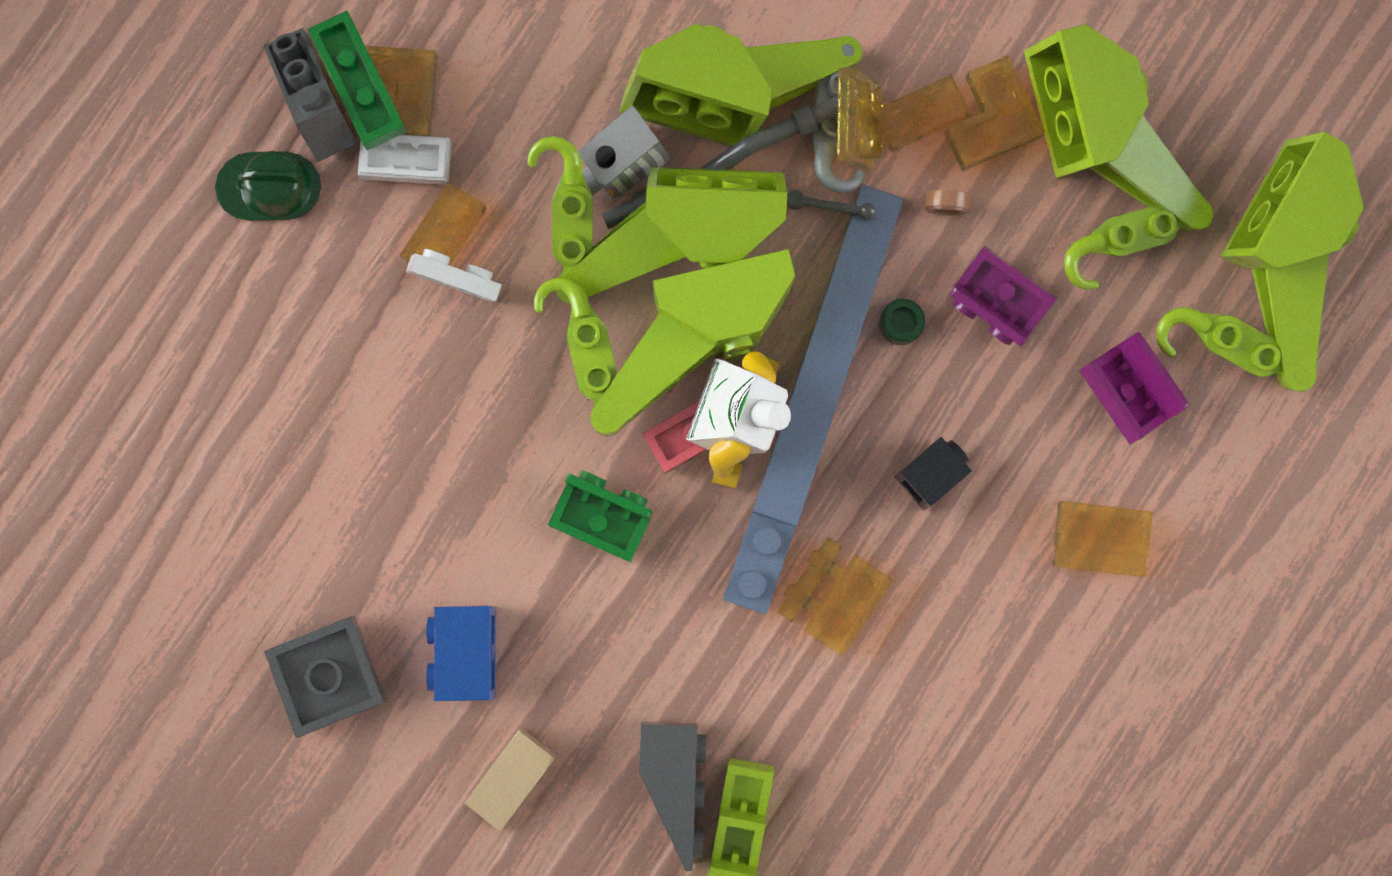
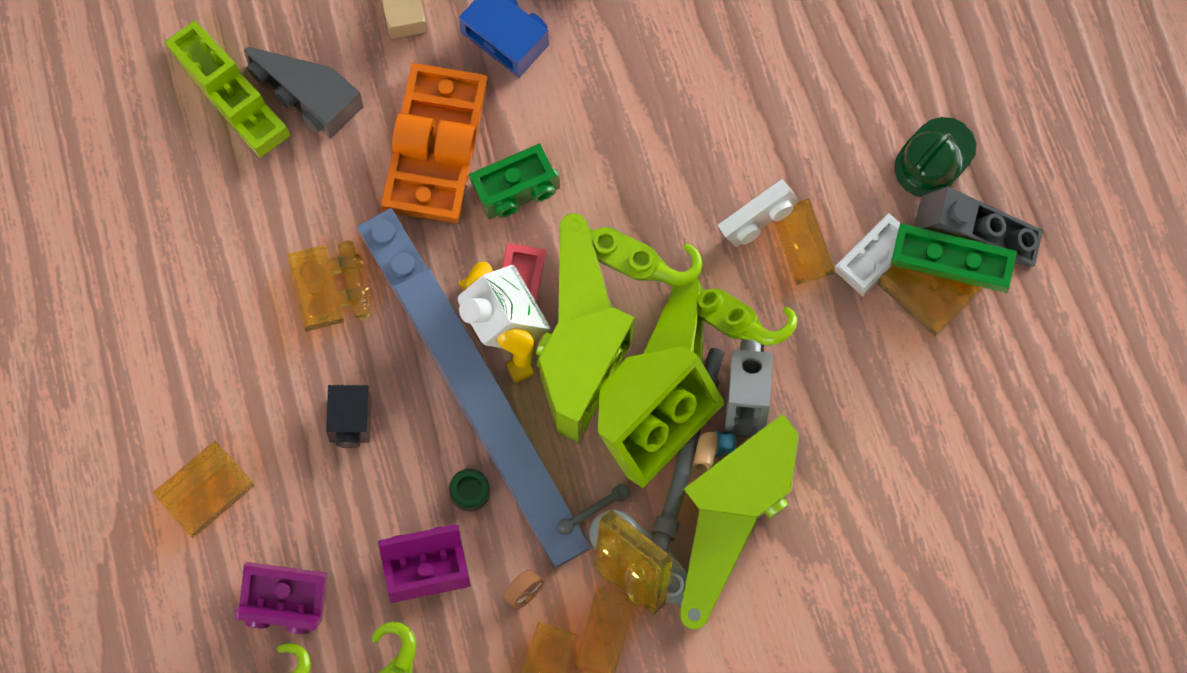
camera: 135 degrees right, 10 degrees down
(624, 621) = (434, 143): none -> orange plate
(699, 153) = (712, 445): none -> light nougat arm

